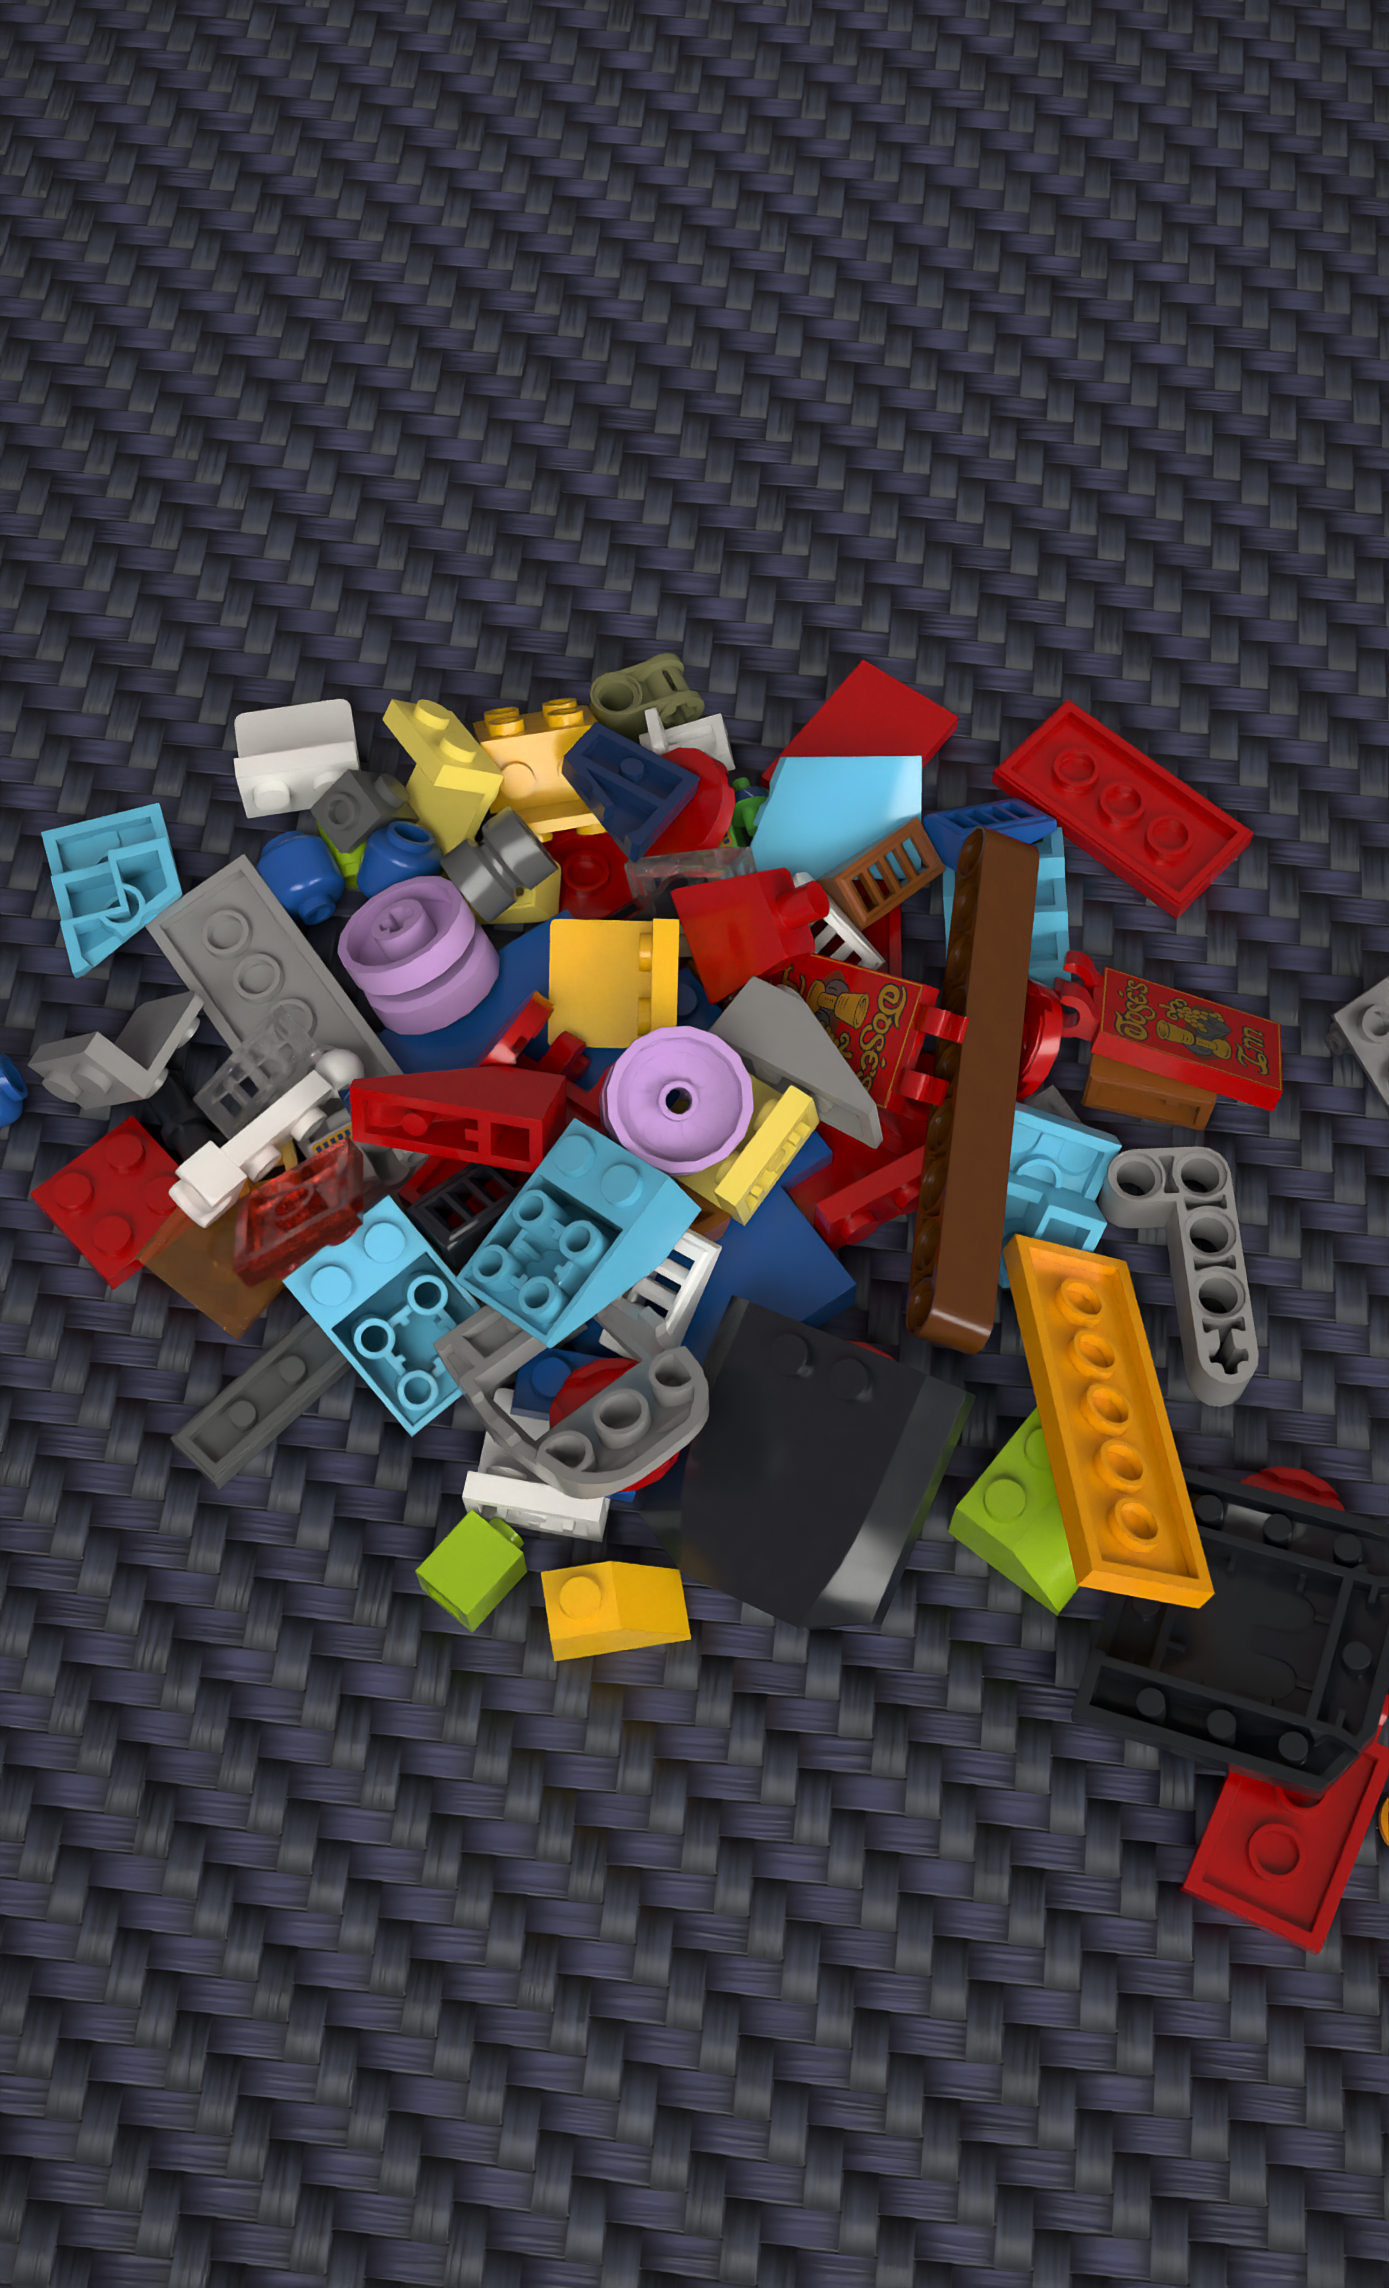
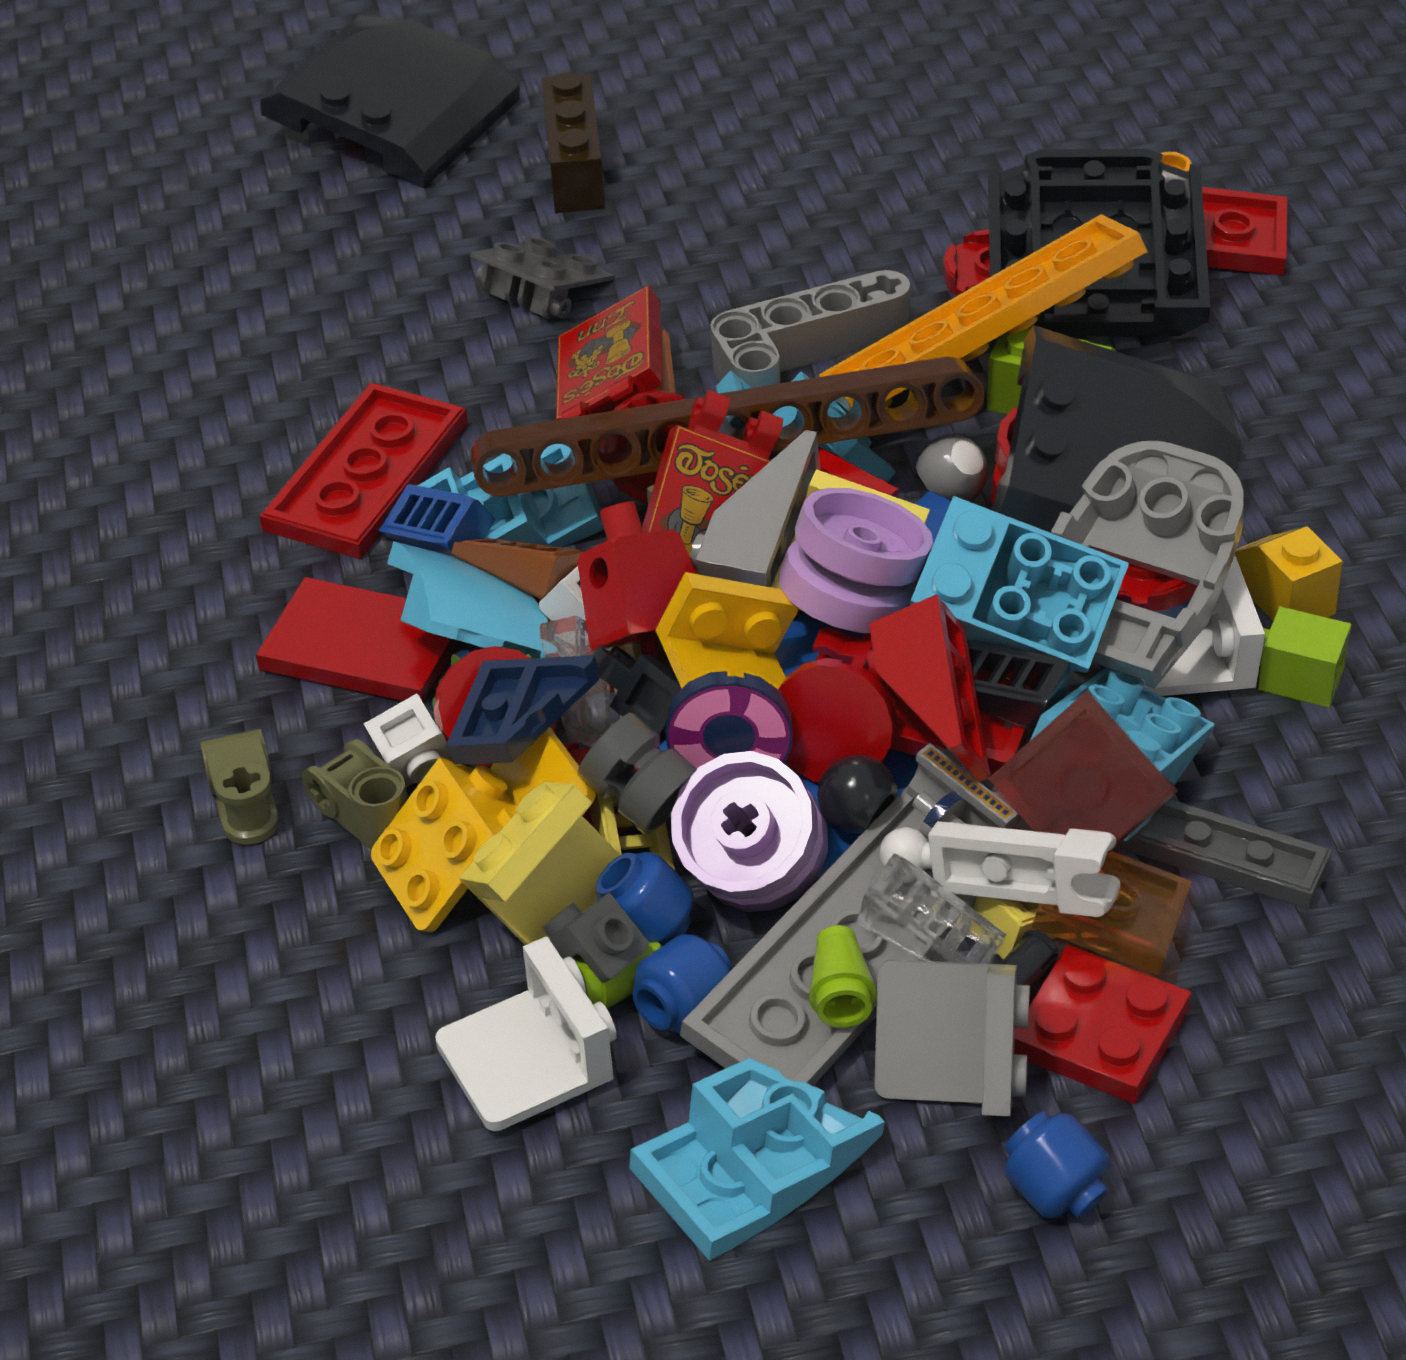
camera: 105 degrees left, 20 degrees down
(223, 976) = (841, 981): none -> lime cone
(430, 1047) = (855, 792): none -> black piece
(523, 951) = (729, 716): none -> tile
(701, 617) = (241, 783): none -> olive piece
(882, 1325) = (953, 467): none -> light grey piece

